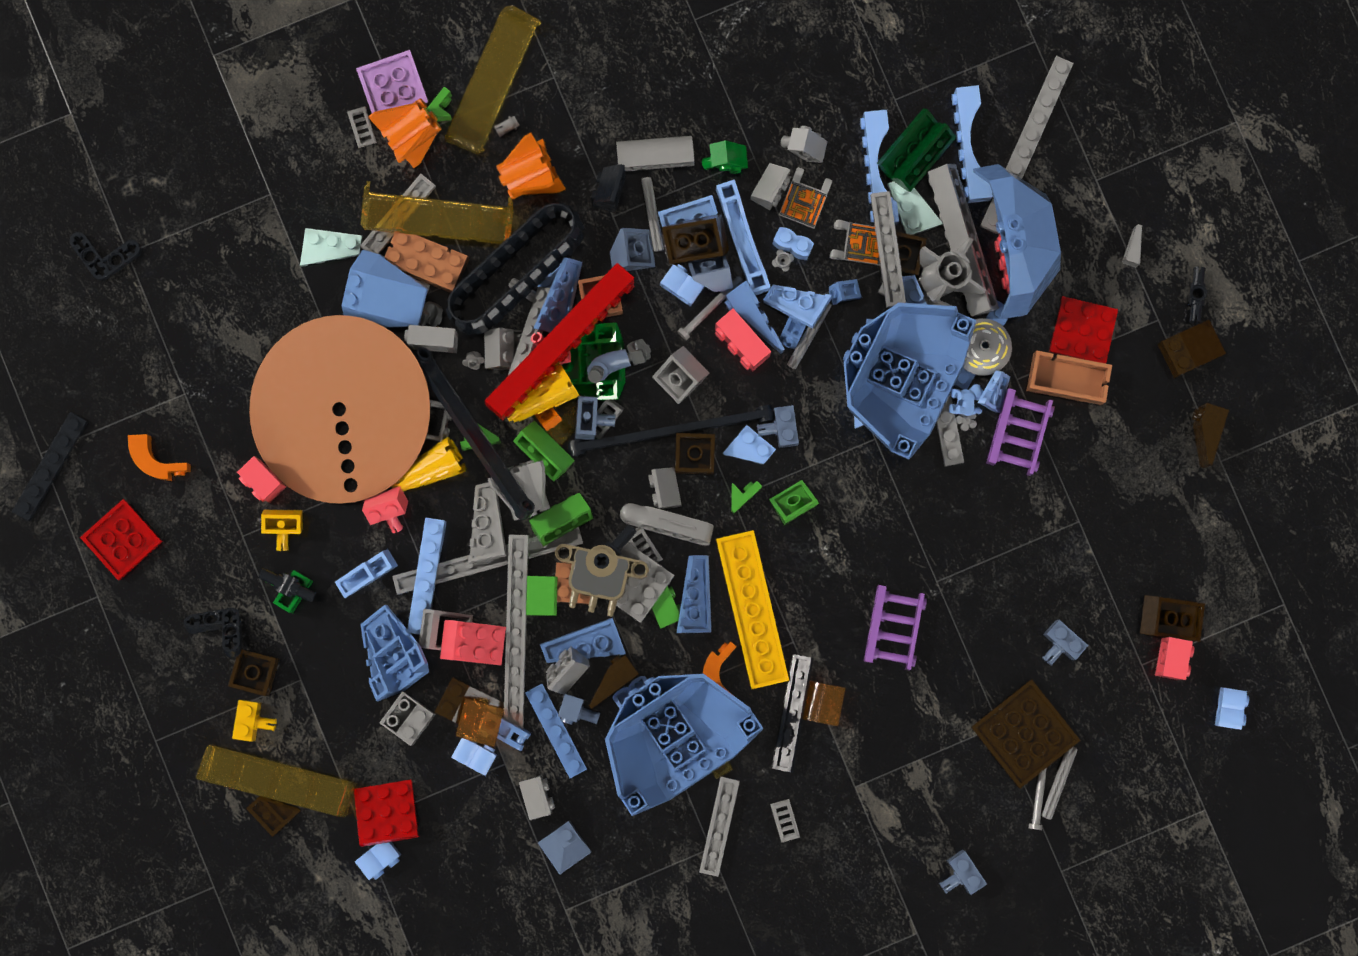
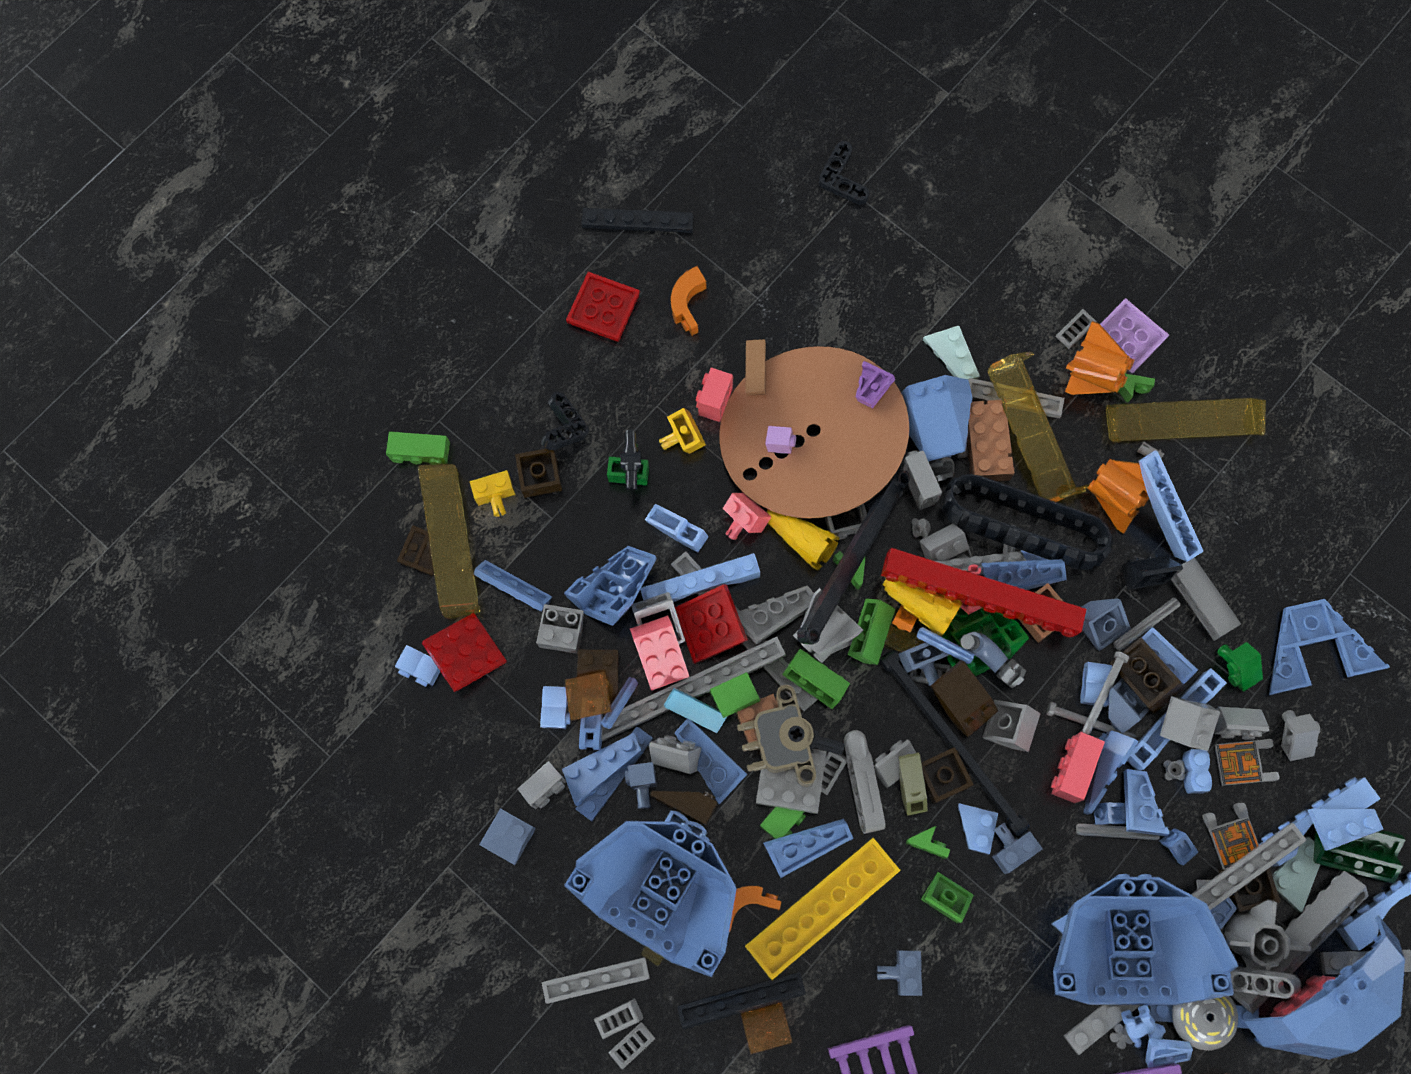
camera: 70 degrees right, 10 degrees down
(174, 771) = (417, 448): none -> bright green brick
(251, 429) = (755, 367): none -> medium nougat tile
(325, 336) = (873, 384): none -> medium lavender wing
(334, 443) = (780, 439): none -> lavender brick
(346, 743) = (512, 585): none -> medium blue plate
(468, 586) = (710, 624): none -> red plate
(498, 697) = (619, 702): none -> medium blue axle
(536, 636) = (694, 710): none -> medium azure tile
(545, 744) = (594, 770): none -> medium blue wing
(566, 144) = (1169, 508): none -> light blue slope
(588, 396) = (945, 645): none -> medium blue axle
(640, 403) = (964, 698): none -> dark brown slope
(671, 254) = (1120, 659): none -> light grey bar
(689, 484) = (912, 784): none -> olive slope
(720, 81) = (1313, 624): none -> medium blue wing
(752, 228) = (1190, 723): none -> light grey slope
(759, 805) = (636, 1014): none -> light grey slope
(836, 568) = (906, 973): none -> sand blue brick
(892, 153) = (1343, 825): none -> light blue wing
(976, 298) = (1274, 979): none -> light grey piece

